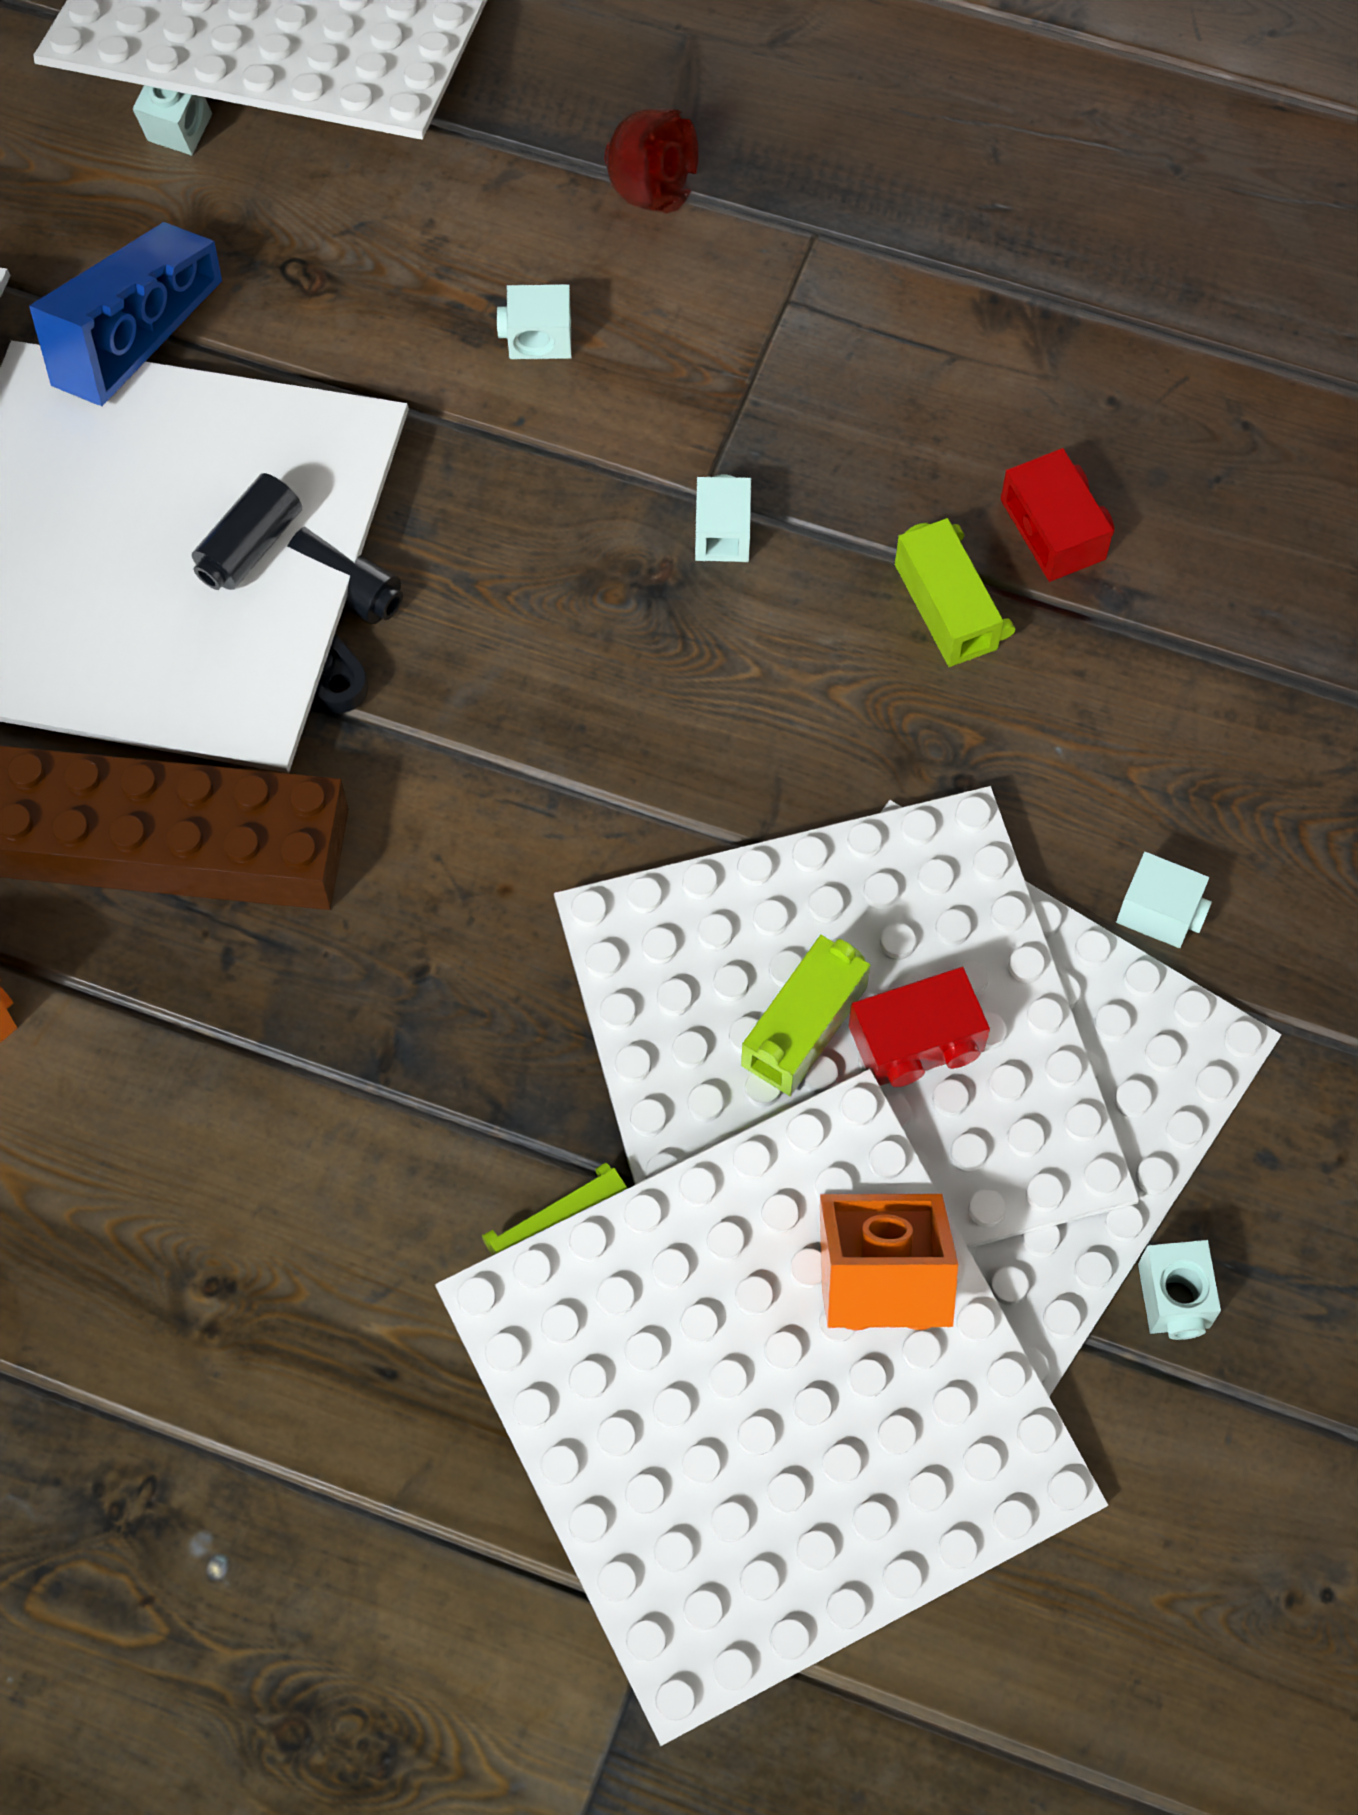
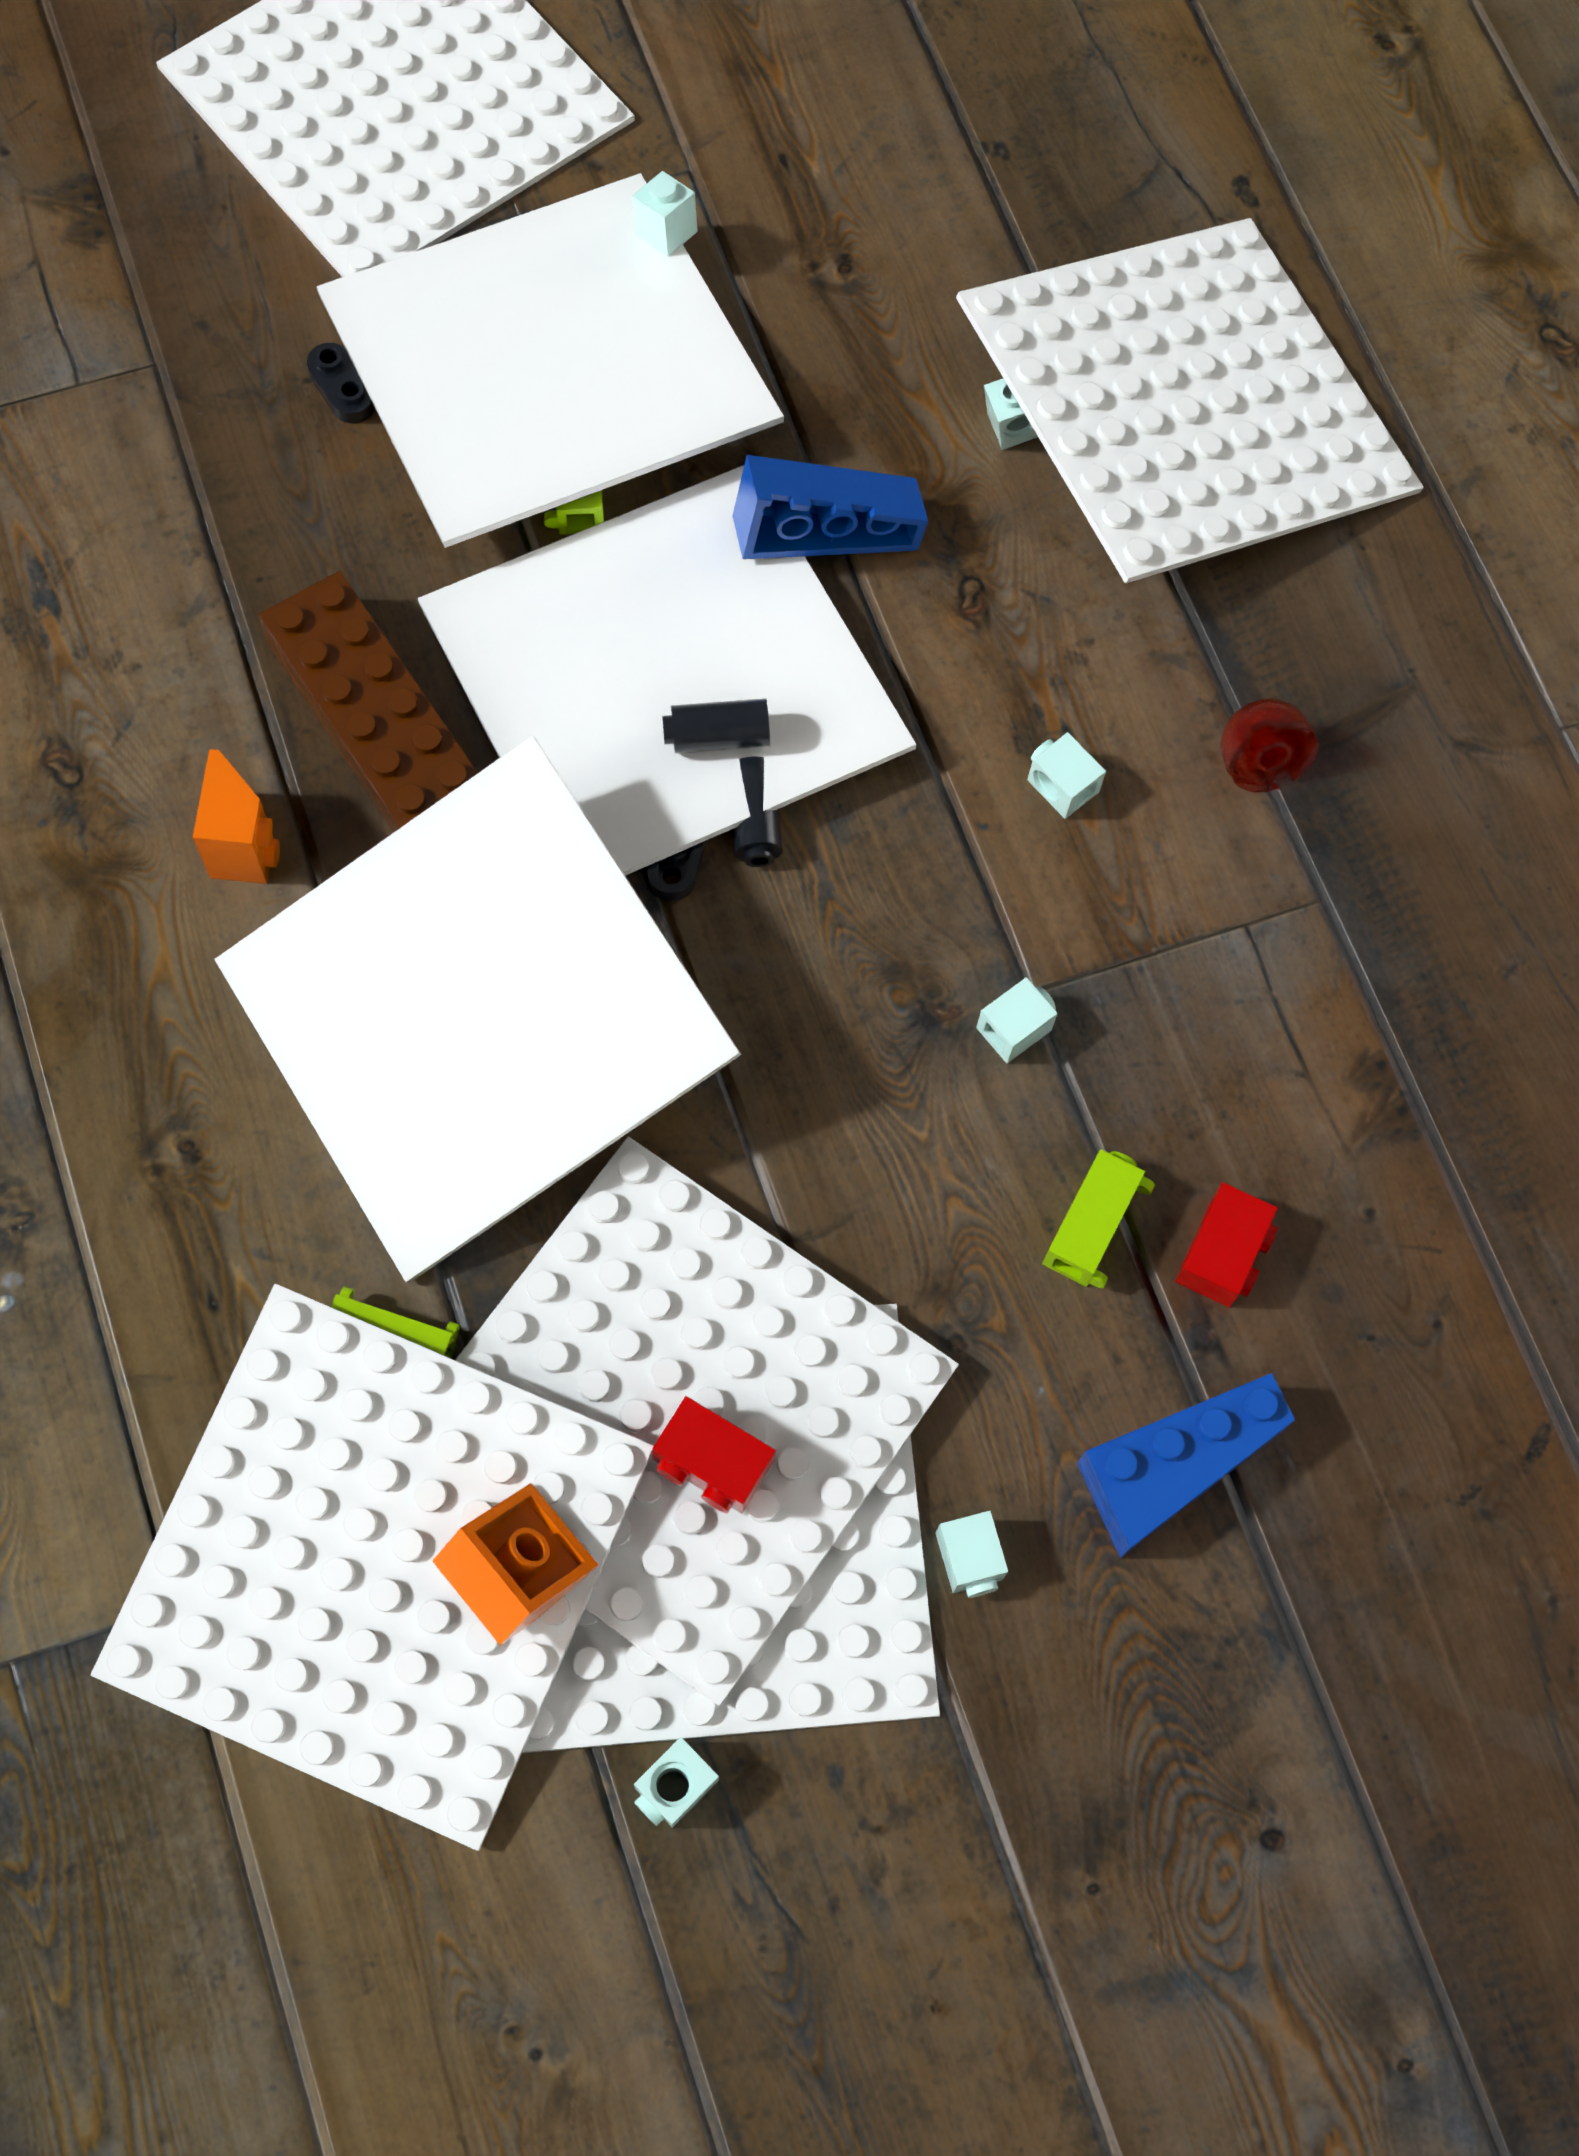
camera: 45 degrees right, 5 degrees up
(322, 922) = (475, 1009): none -> white baseplate
(806, 1014) = (663, 1371): lime brick -> none
(1213, 698) = (1171, 1462): none -> blue wedge

